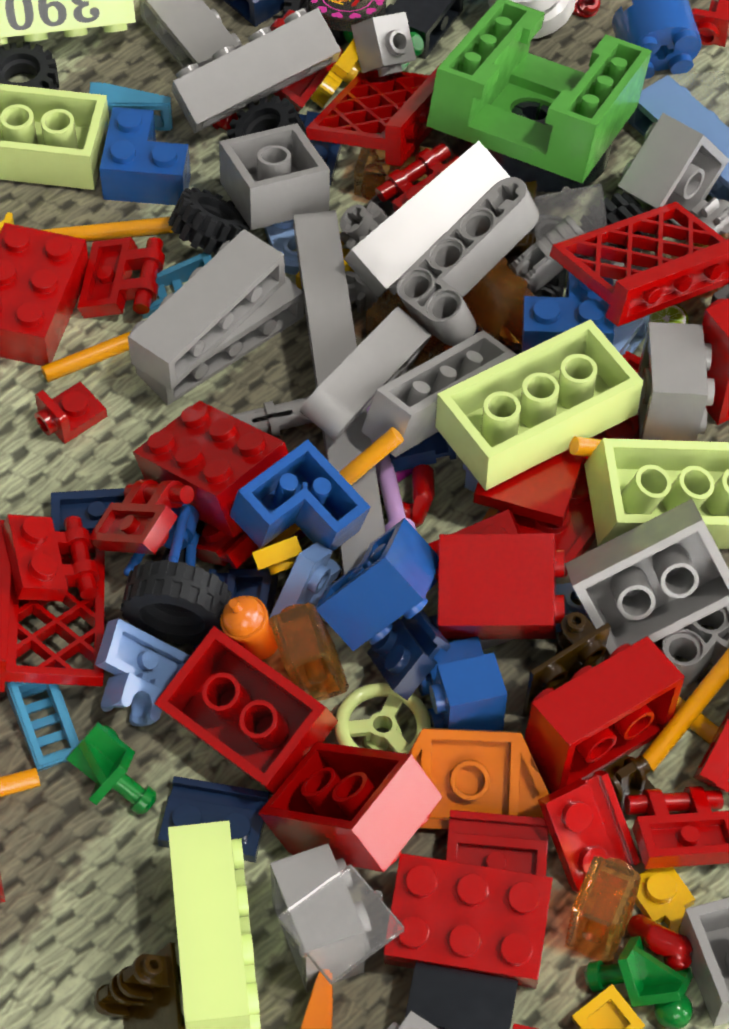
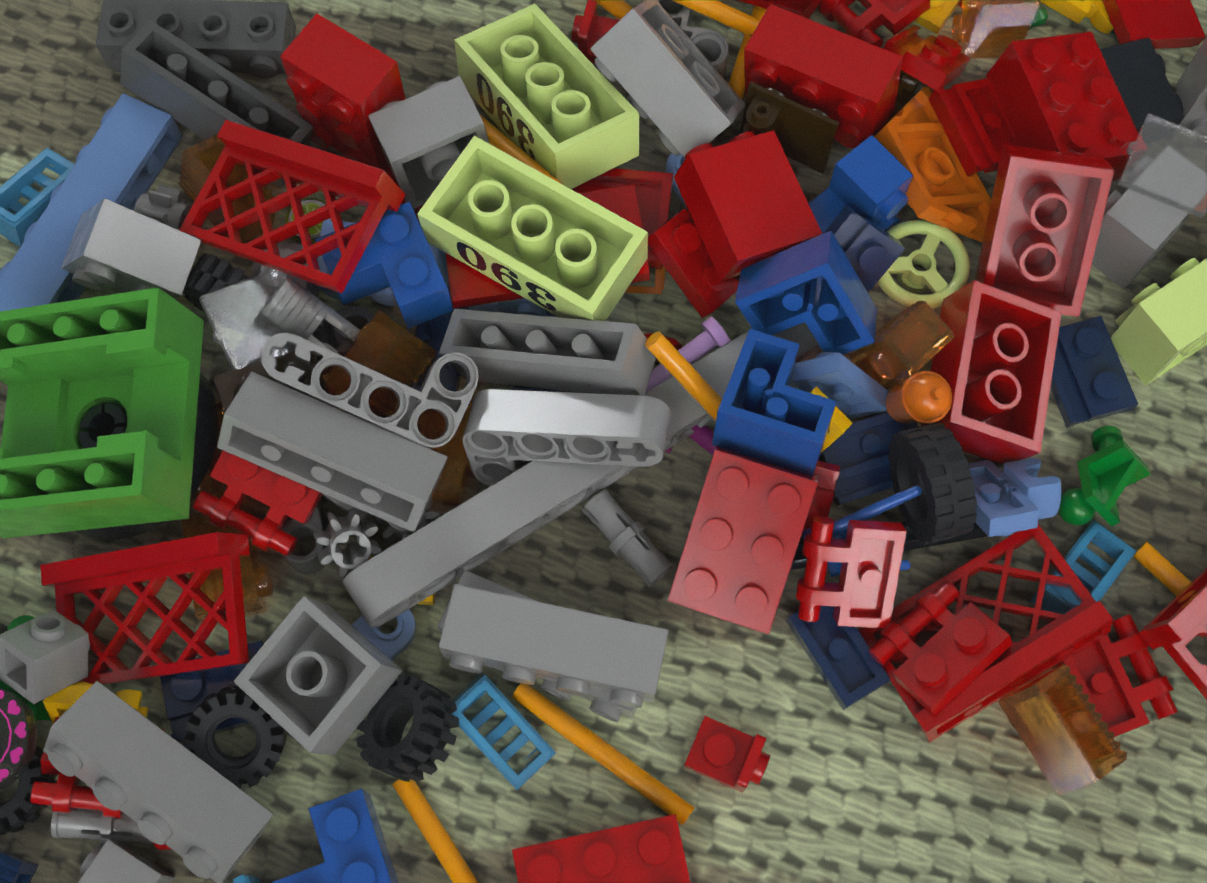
camera: 115 degrees left, 15 degrees up
(109, 274) = (530, 811): red plate -> none

